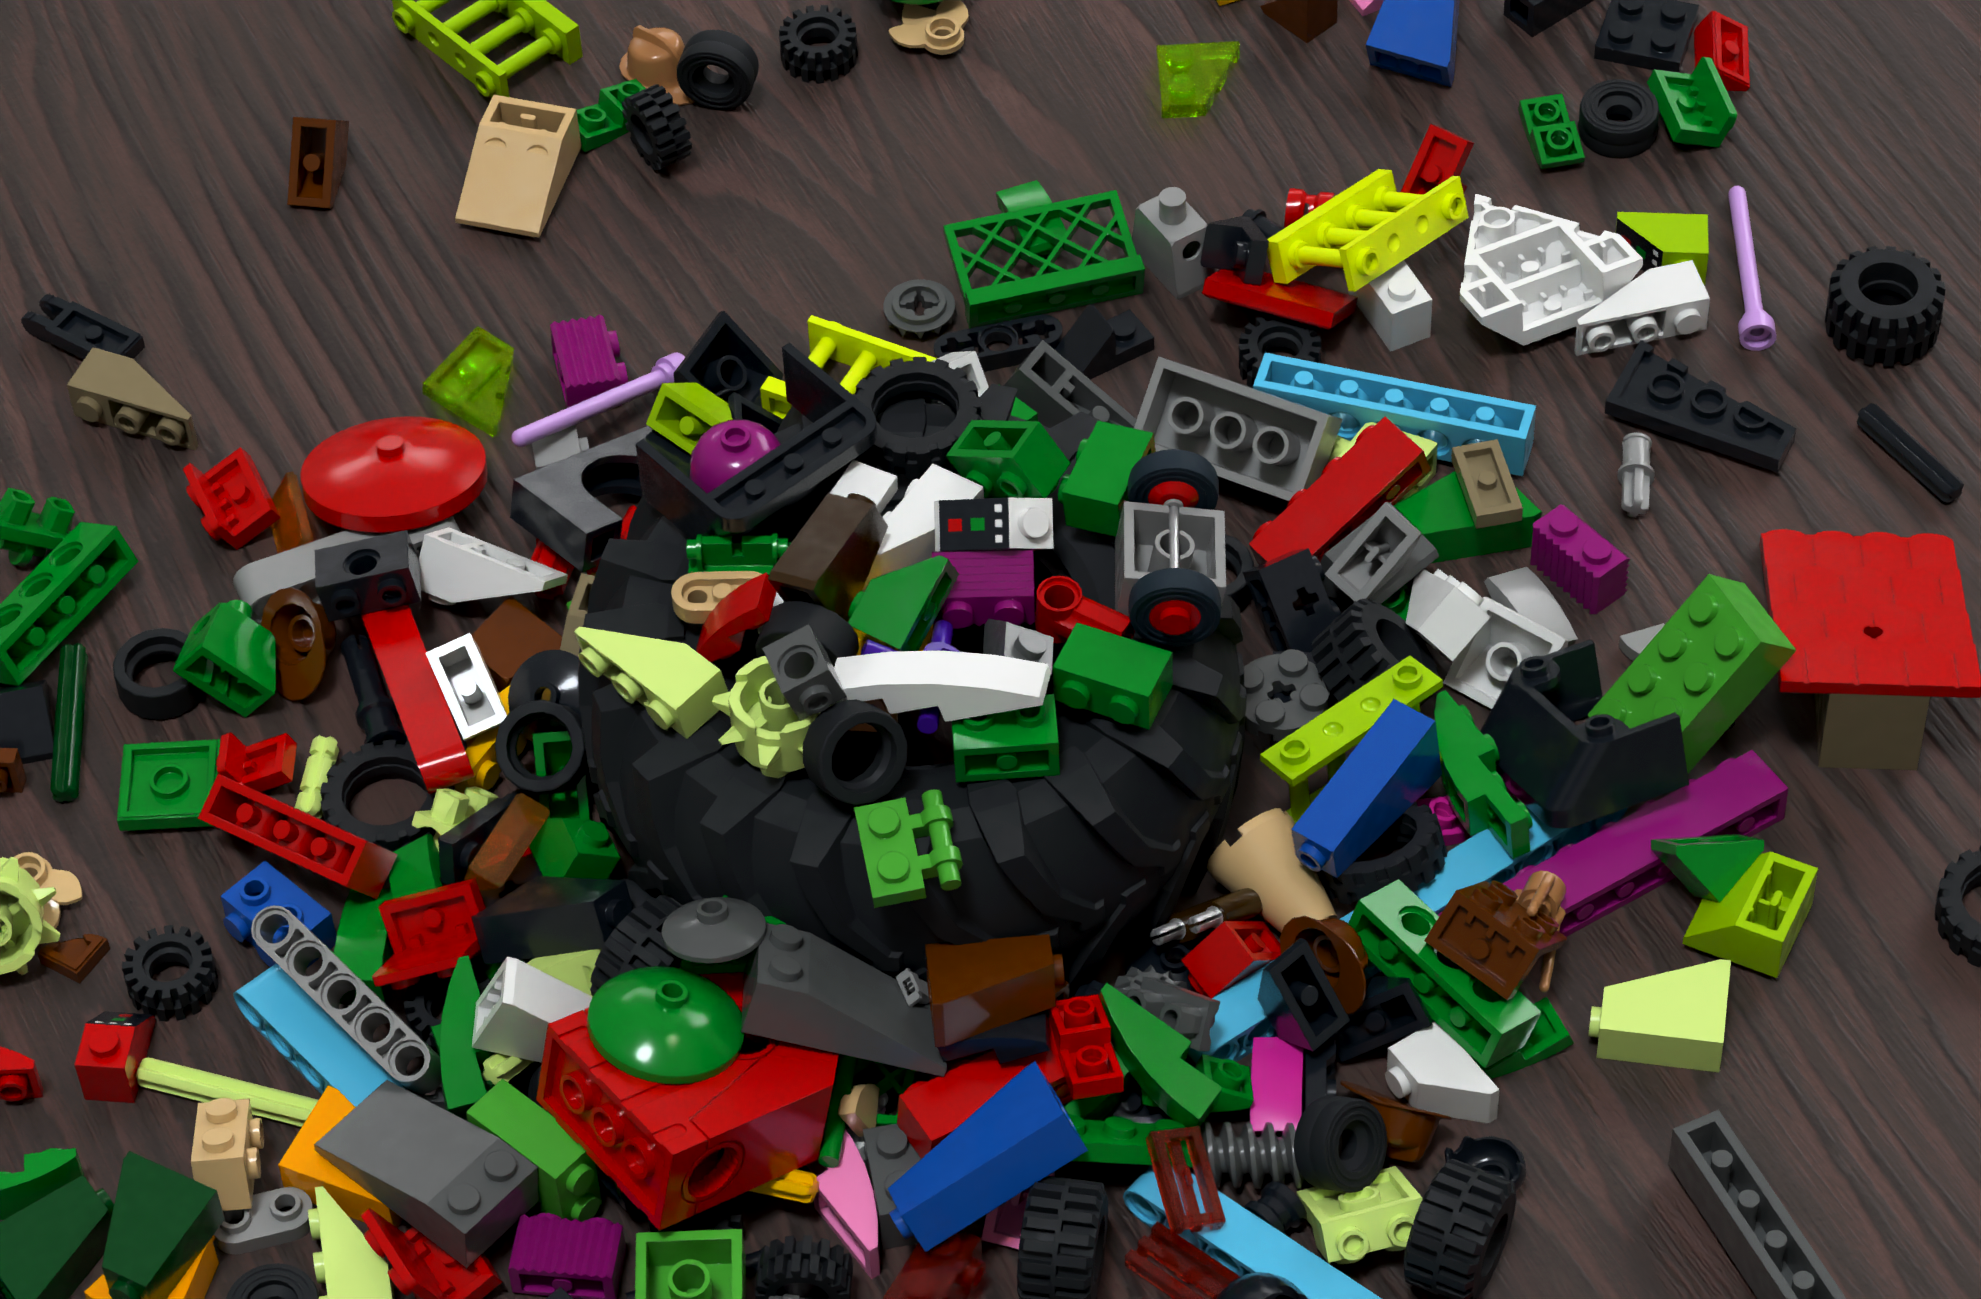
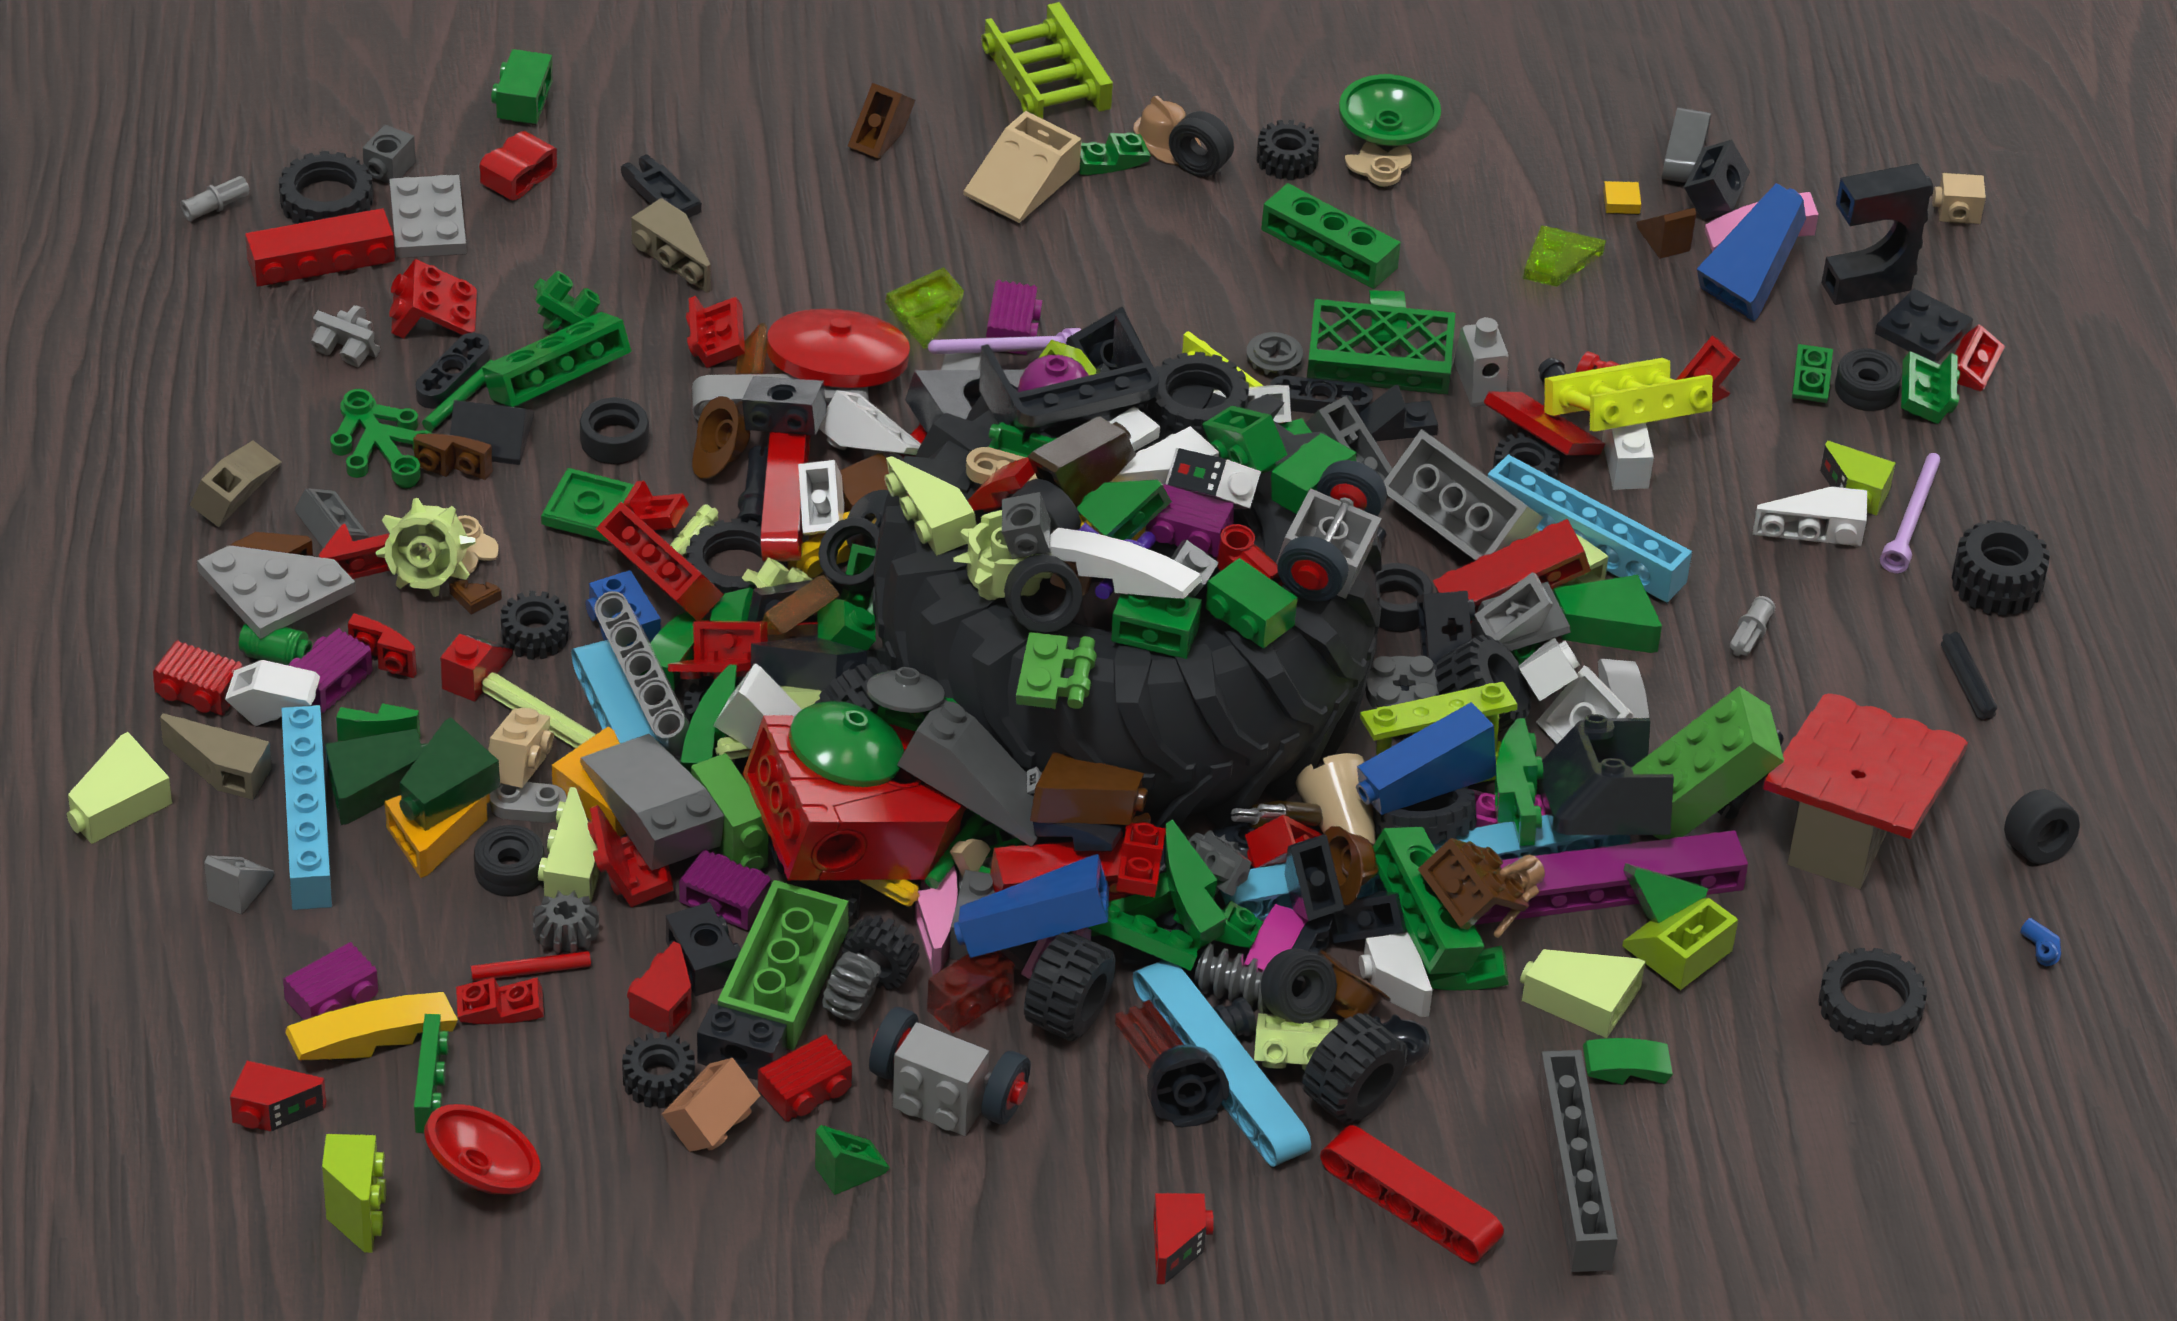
camera: 15 degrees right, 5 degrees down
(69, 723) = (537, 443): dark green axle -> none
(230, 657) = (666, 432): green torso -> none
(656, 127) = (1137, 170): black tyre -> none
(919, 137) = (1330, 236): none -> green brick
(1167, 1185) = (1171, 999): clear red tile -> none
(1236, 246) = (1522, 377): black slope -> none
(1486, 483) = (1627, 592): dark tan plate -> none
(1538, 271) = (1744, 463): white wedge -> none
(1578, 559) = (1676, 668): magenta brick -> none
(1678, 404) = (1812, 591): black wing -> none
(1758, 1094) = (1620, 1057): none -> green slope

